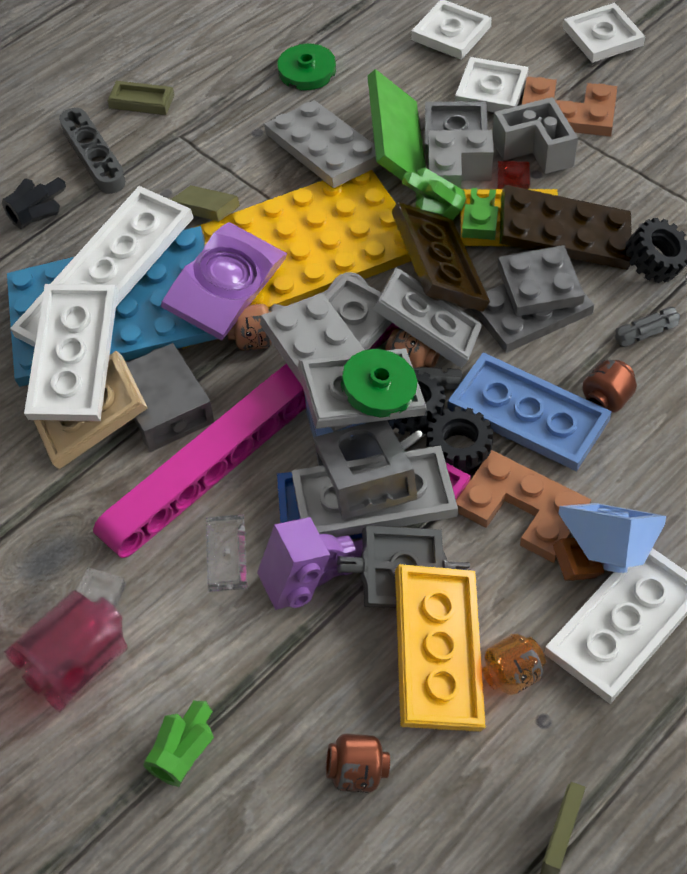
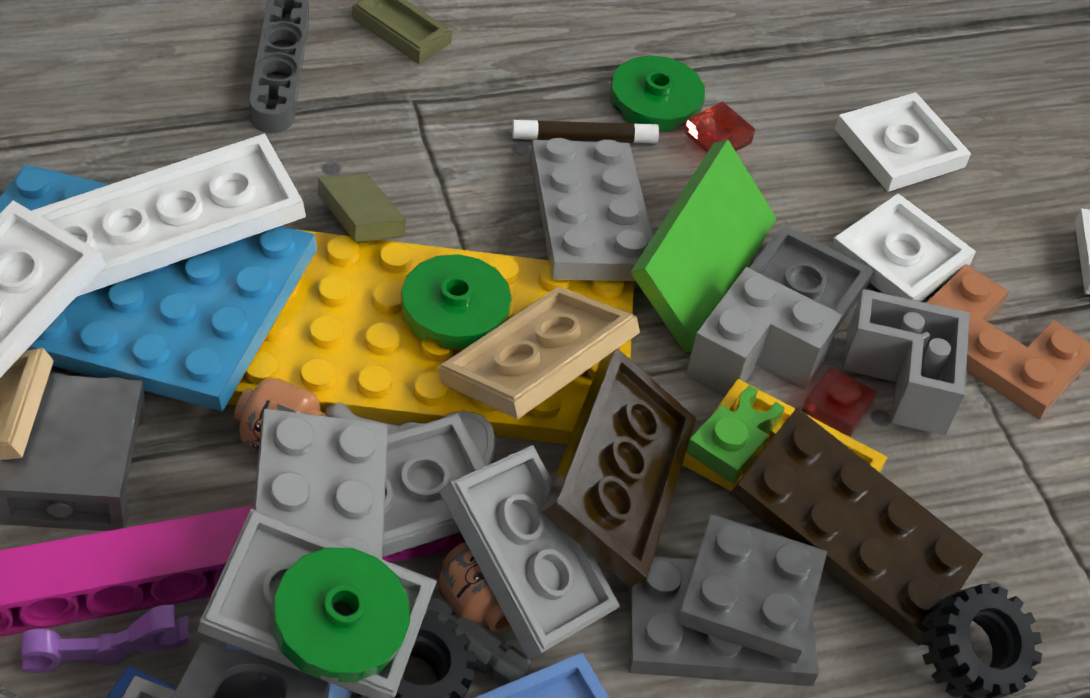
camera: 20 degrees right, 5 degrees down
(33, 203) = (141, 89): black rock -> none
(223, 280) = (278, 327): medium lavender slope -> none
(276, 452) = (153, 631): none -> medium lavender piece
(284, 106) = (585, 131): none -> dark brown bar
(295, 223) = (455, 300): none -> green plate
(355, 70) = (719, 124): none -> clear red plate
(359, 224) = (538, 351): none -> tan tile
(435, 193) = (697, 371): bright green rock -> none

